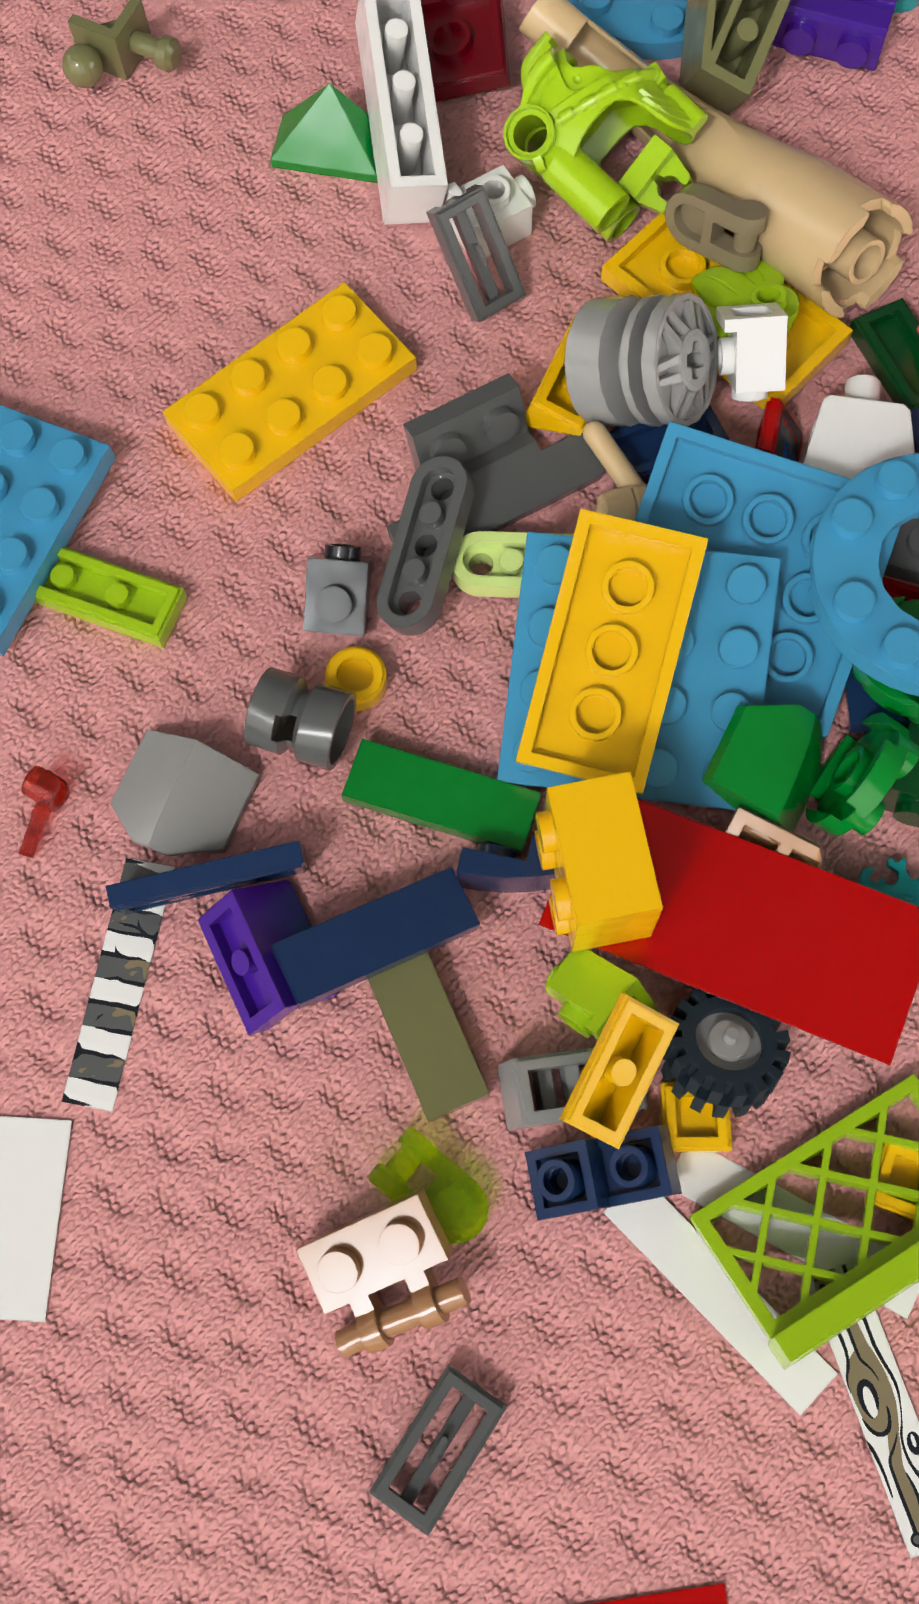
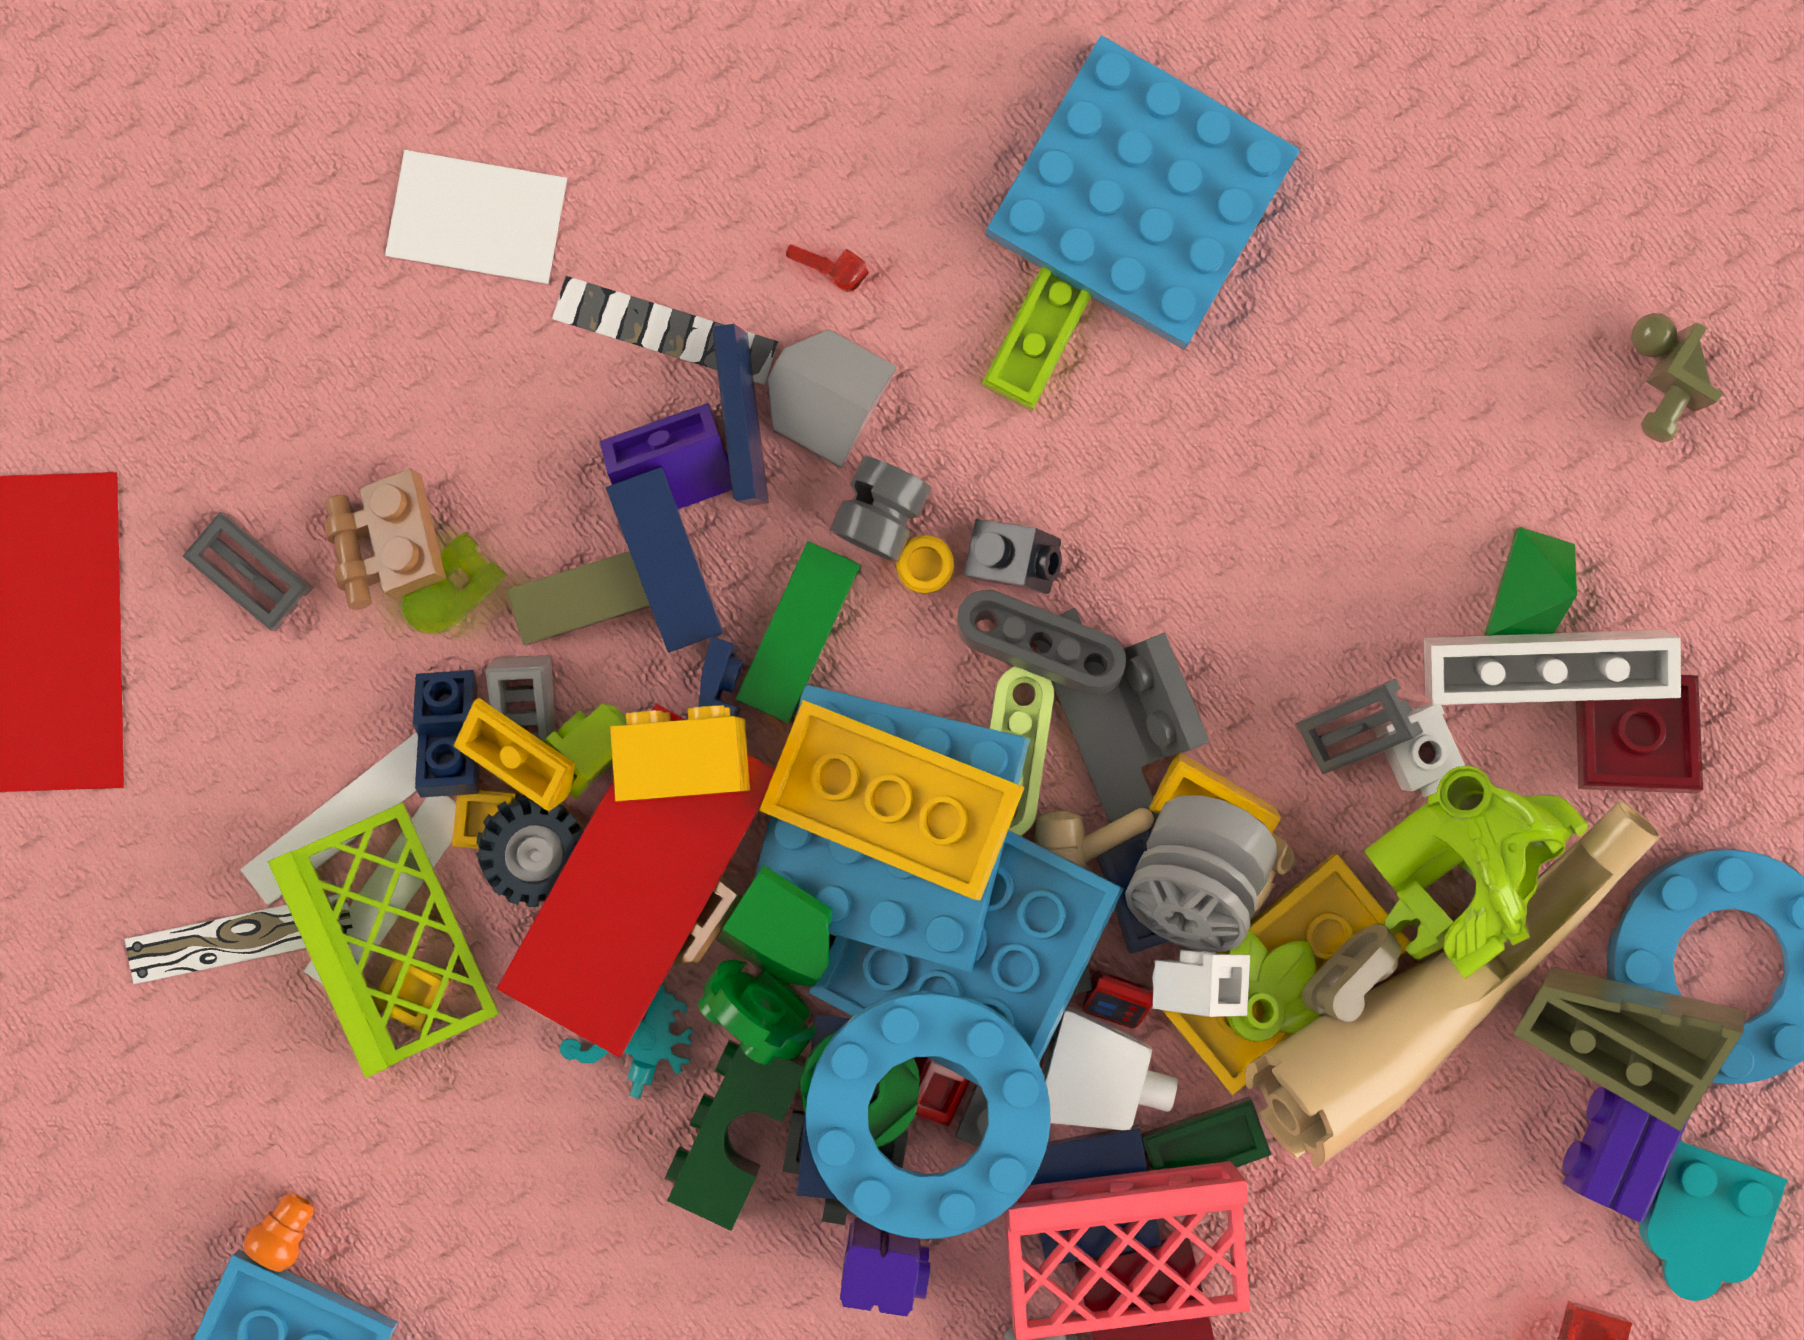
camera: 90 degrees right, 15 degrees up
(290, 391) = (1240, 527): yellow plate -> none

